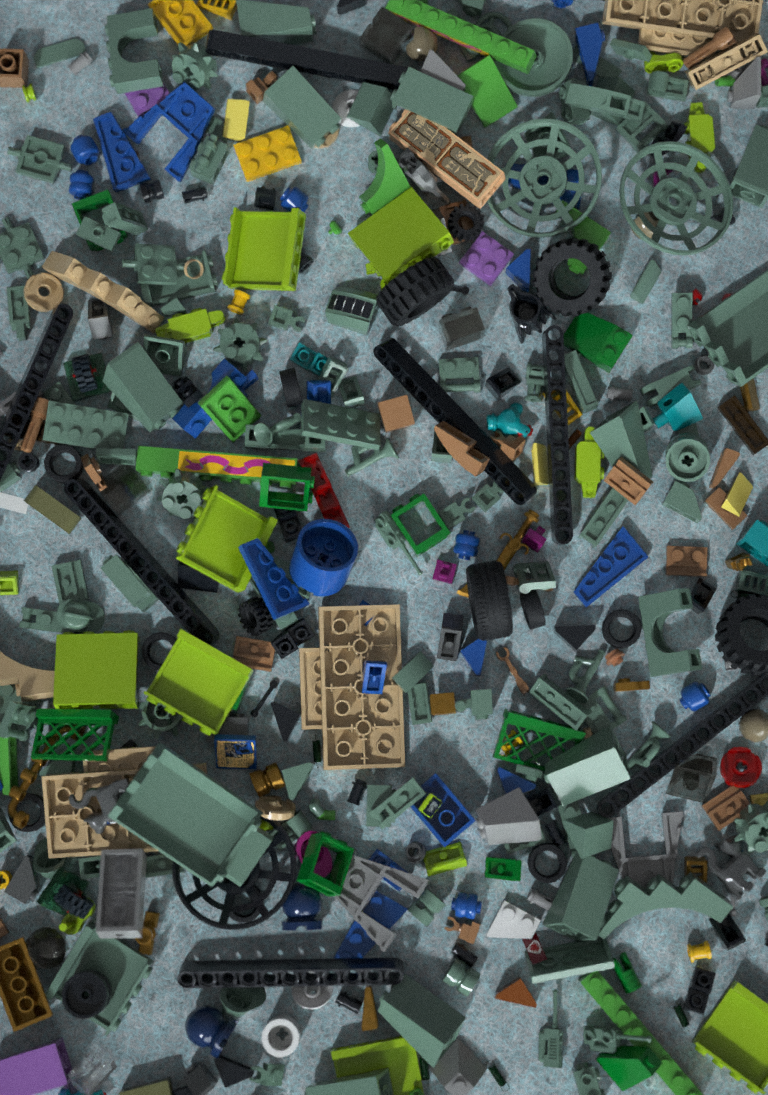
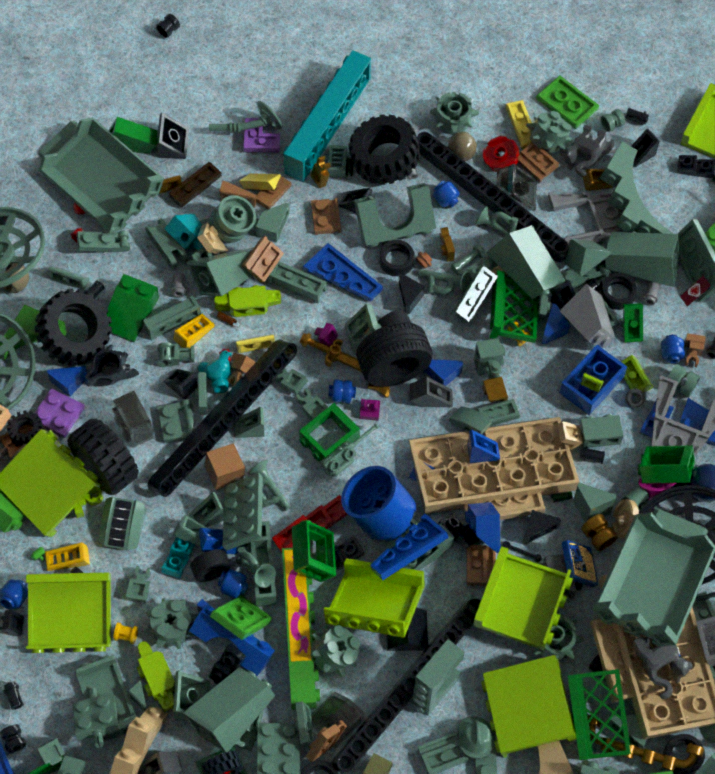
camera: 105 degrees left, 20 degrees down
(148, 643) = (485, 663): black tyre -> none
(201, 266) = (99, 687): tan axle -> none
(255, 616) = (452, 568): black tyre -> none
(271, 408) = (233, 583): none -> blue head
(286, 659) = (485, 523): none -> blue slope
(319, 813) = (619, 484): arm -> none
(329, 267) = (74, 549): none -> yellow slope
(378, 771) = (570, 434): none -> tan bracket
(398, 802) = (597, 407): sand green plate -> none
(461, 448) = (252, 398): medium nougat slope -> none
(485, 402) = (201, 393): none -> sand green plate
(513, 923) = (678, 312): white wing -> none
(519, 681) = (464, 331): medium nougat piece -> none
(561, 426) = (225, 325): black beam -> none
(622, 305) = (95, 288): none -> black pin
(627, 977) = (704, 216): green hinge -> none
(661, 429) = (209, 238): none -> tan wing
(699, 951) = (664, 168): yellow bush -> none
(710, 365) = (142, 217): dark grey plate -> none

